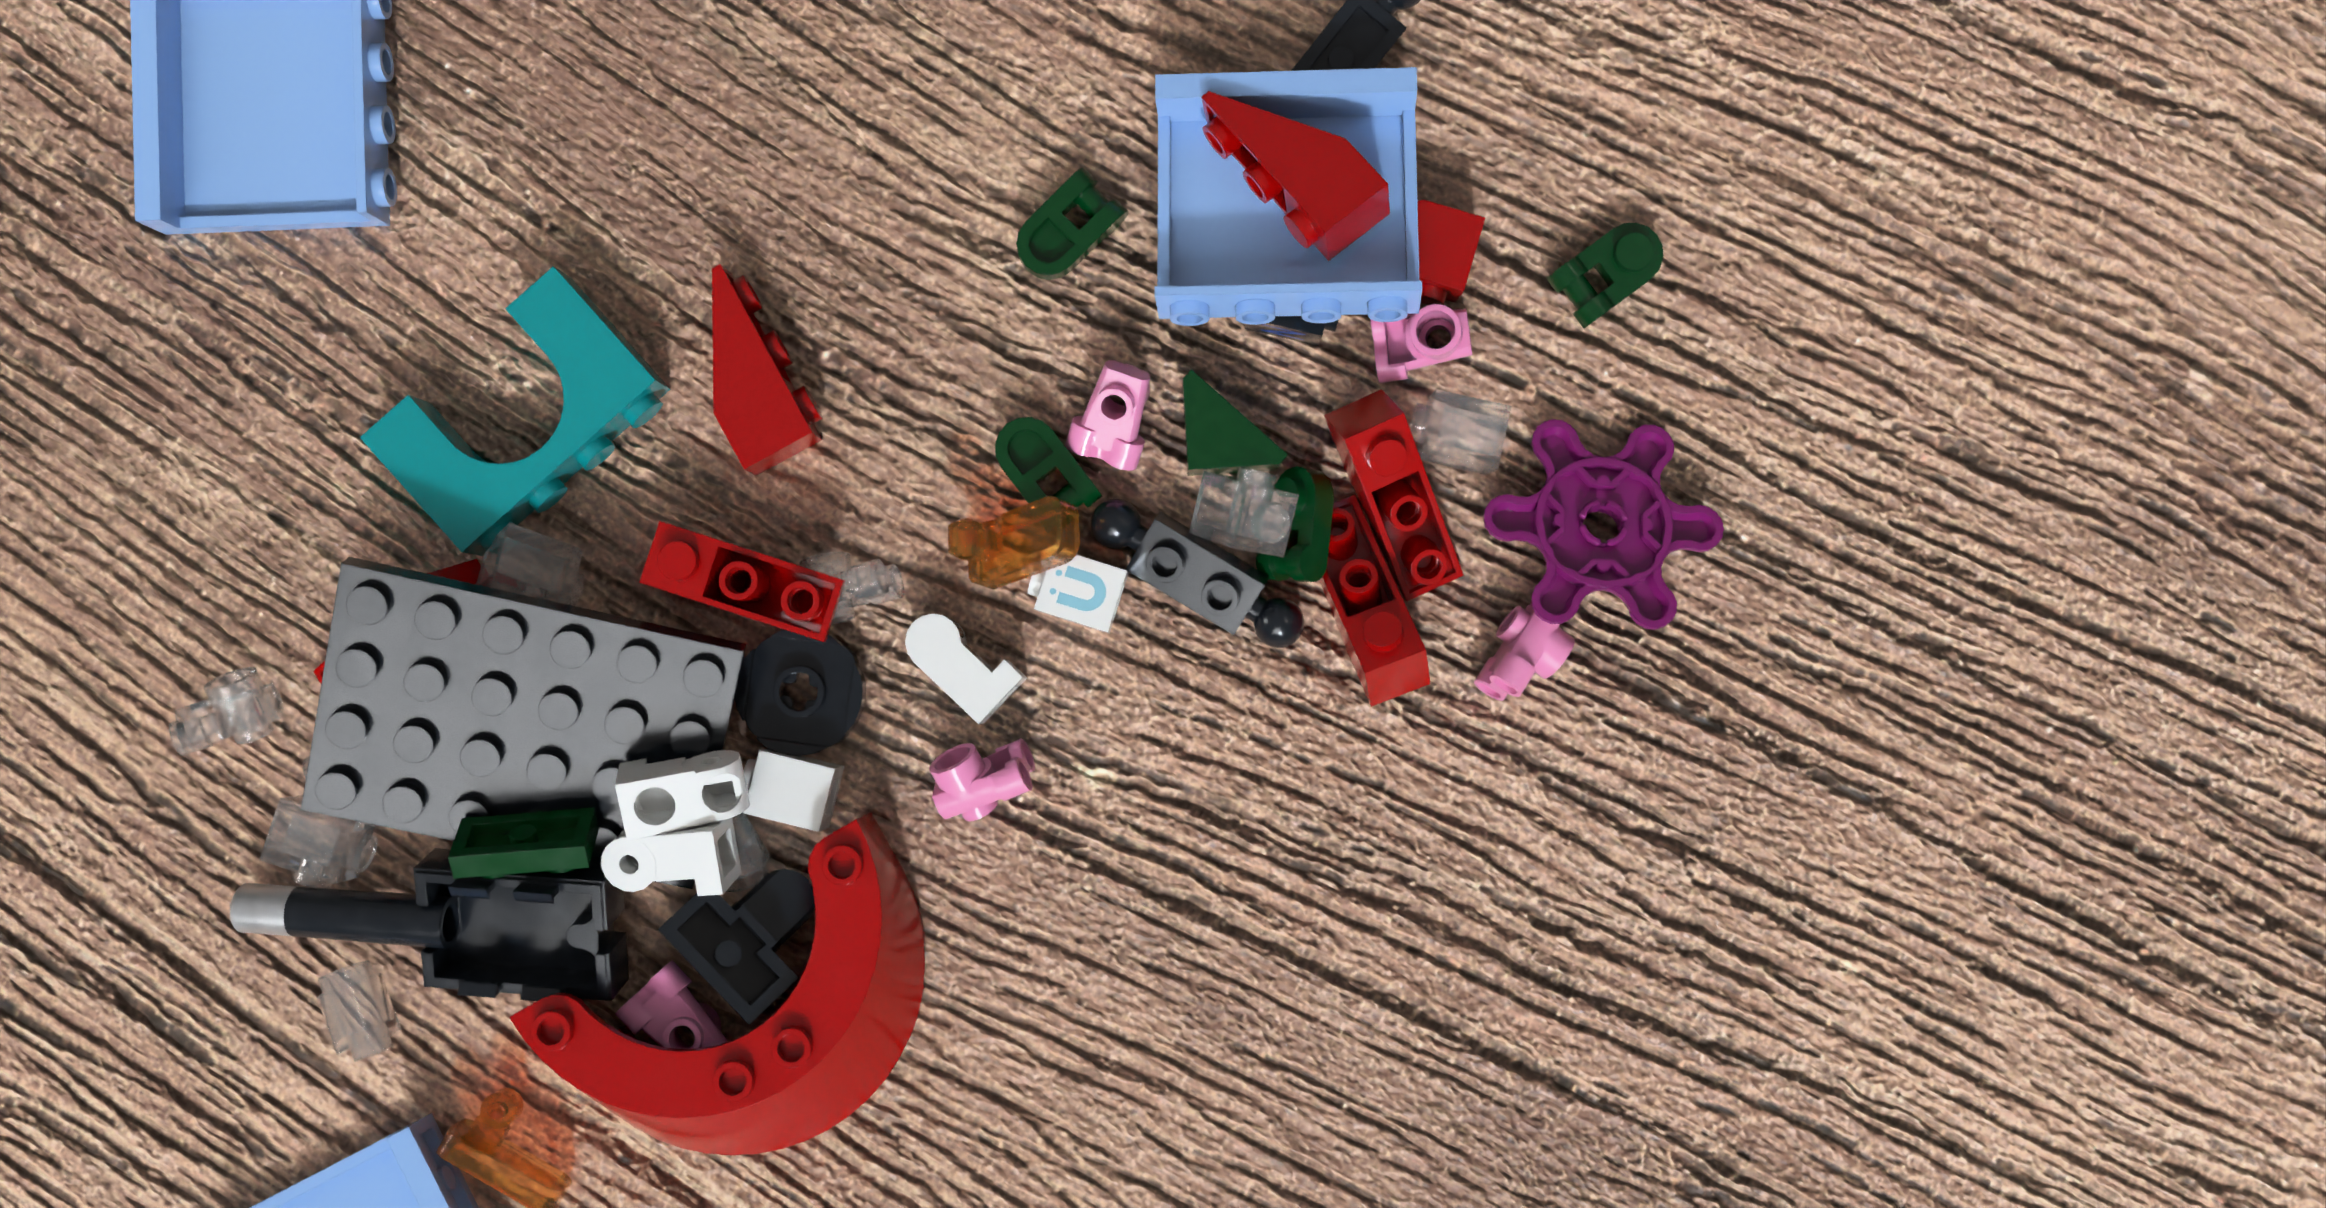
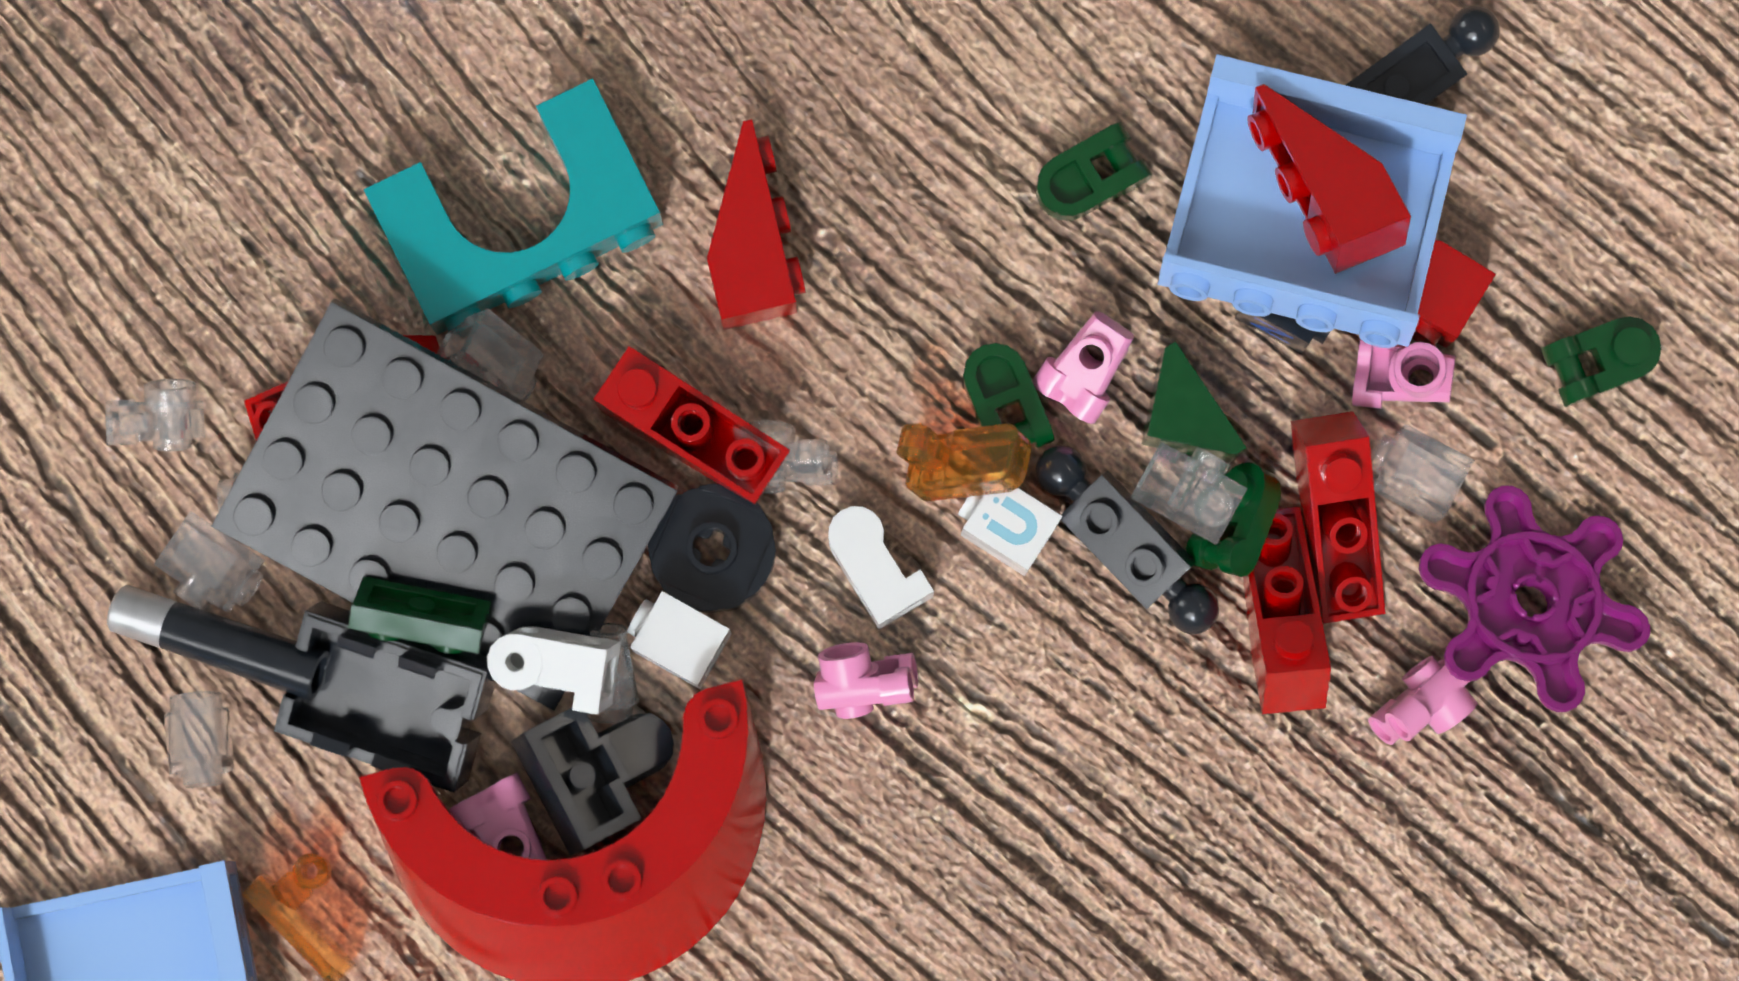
camera: 10 degrees right, 5 degrees down
(680, 792) = (582, 608): white leg -> none

